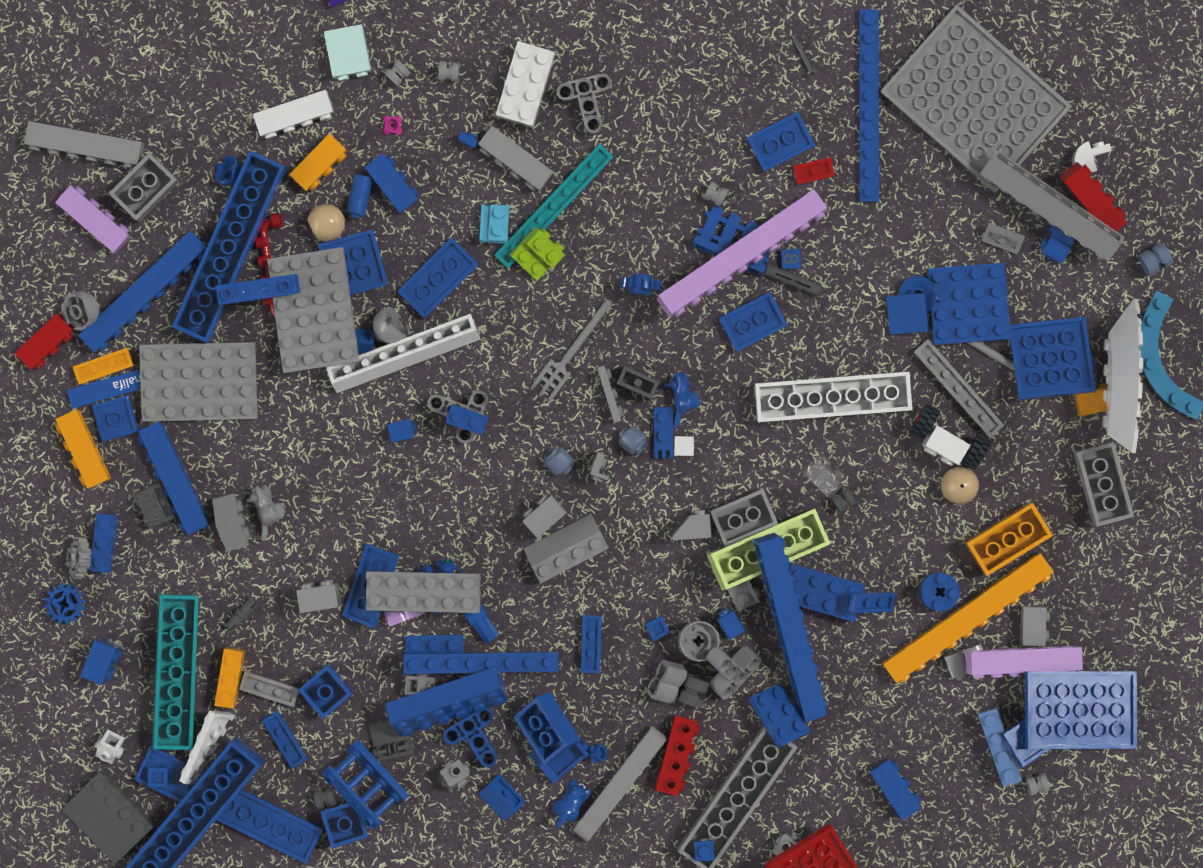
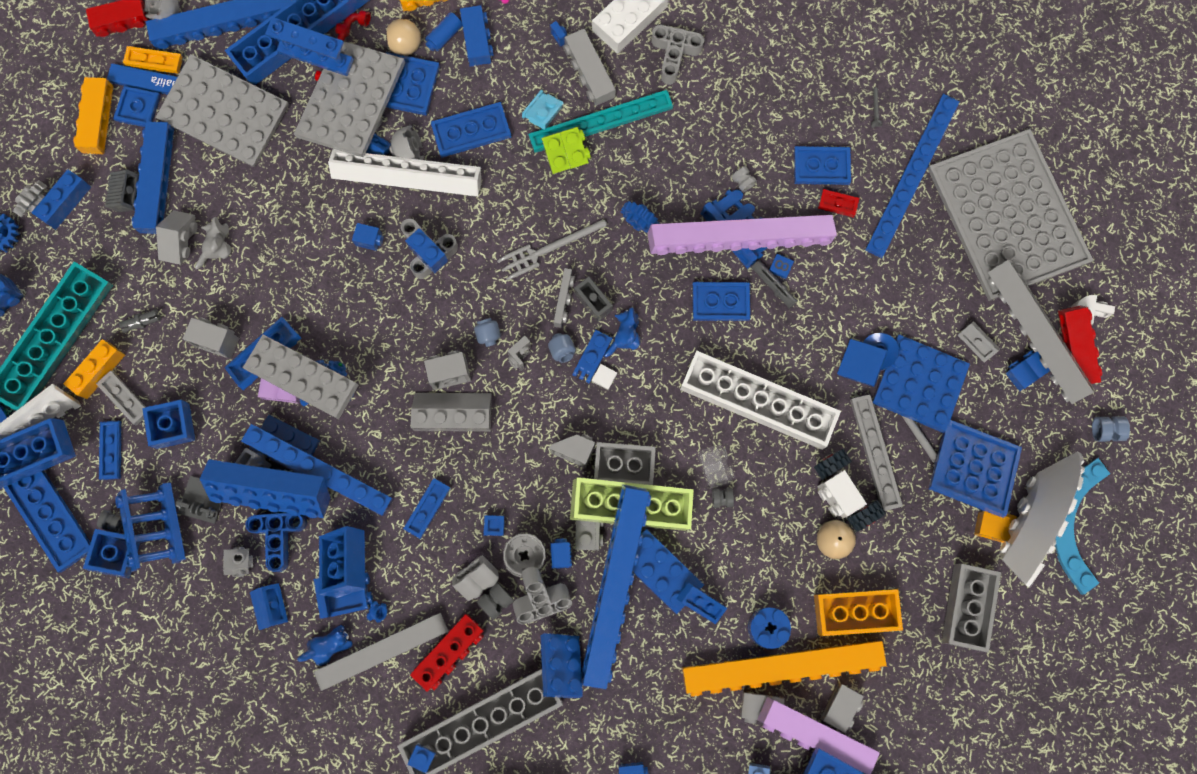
camera: 30 degrees right, 10 degrees down
(482, 624) = (340, 435): blue piece -> none

